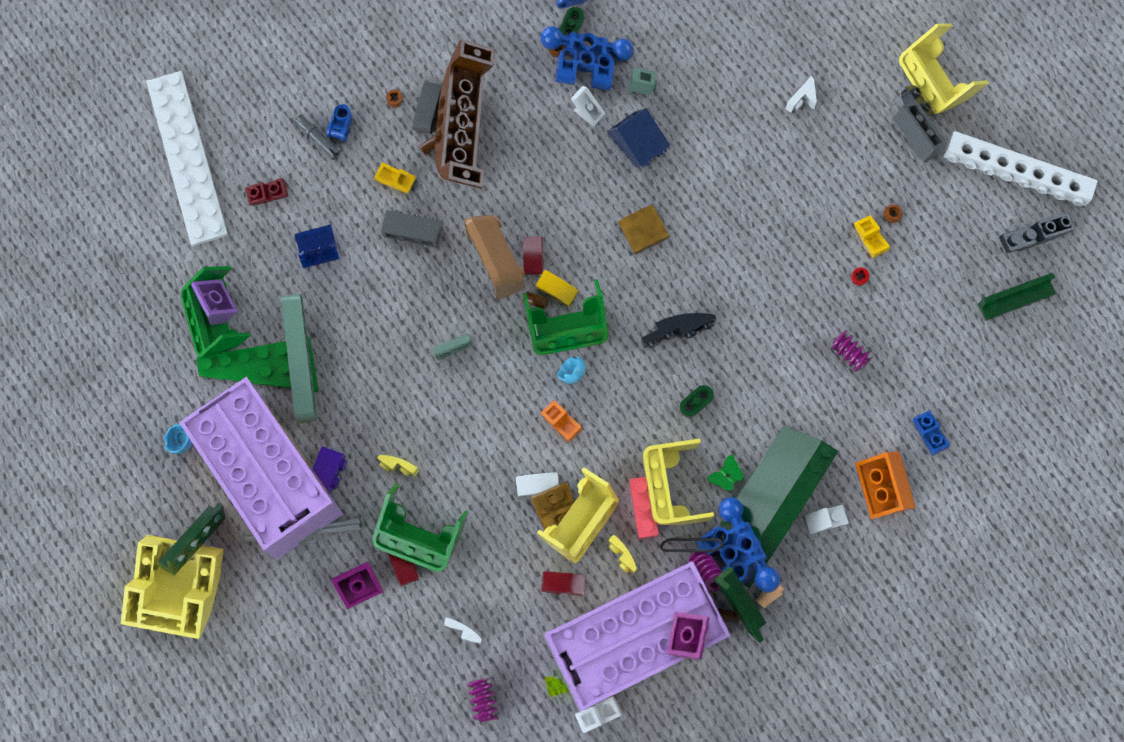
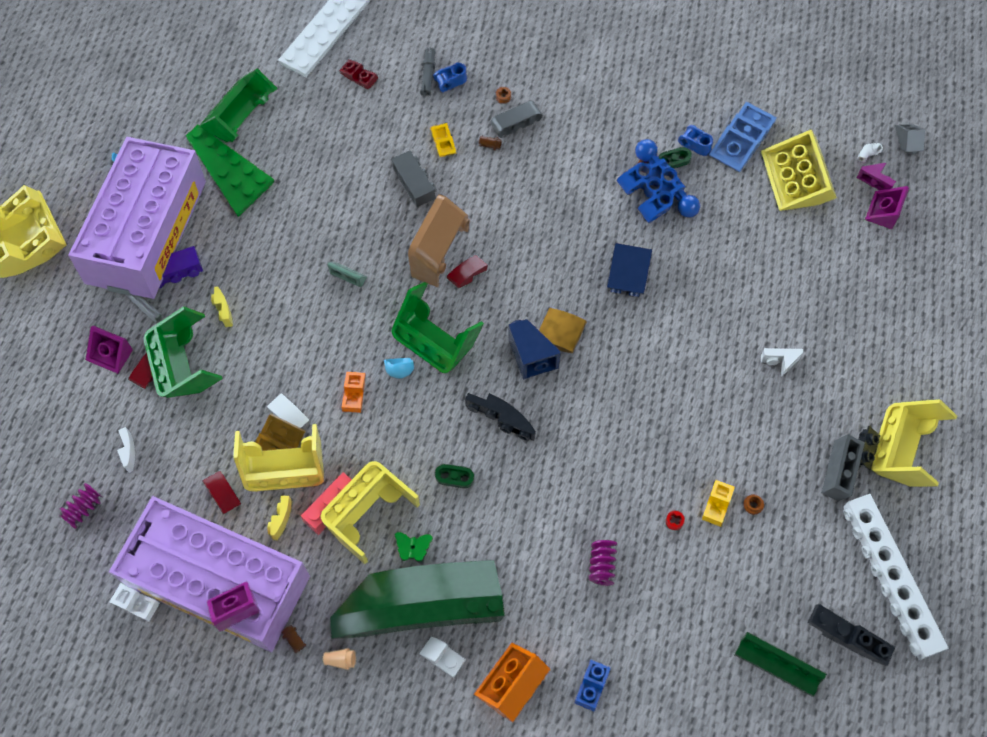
camera: 50 degrees right, 10 degrees down
(192, 539) = (50, 218): dark green fence -> none
(214, 301) = (242, 98): medium lavender slope -> none
(299, 358) = (247, 182): sand green beam -> none
(316, 246) = (345, 133): clear blue hinge -> none
(460, 114) = (527, 138): reddish brown slope -> none
(536, 300) = (433, 300): reddish brown pin -> none
(557, 288) = (456, 307): yellow slope -> none
(587, 106) = (619, 216): white slope -> none
(642, 81) = (677, 237): sand green brick -> none
(645, 262) = (532, 349): none -> dark blue slope
(691, 550) = (332, 557): black piece -> none
(707, 569) = (311, 588): magenta piece -> none
(736, 539) = (350, 601): blue connector -> none
(741, 602) = (305, 636): dark green fence -> none

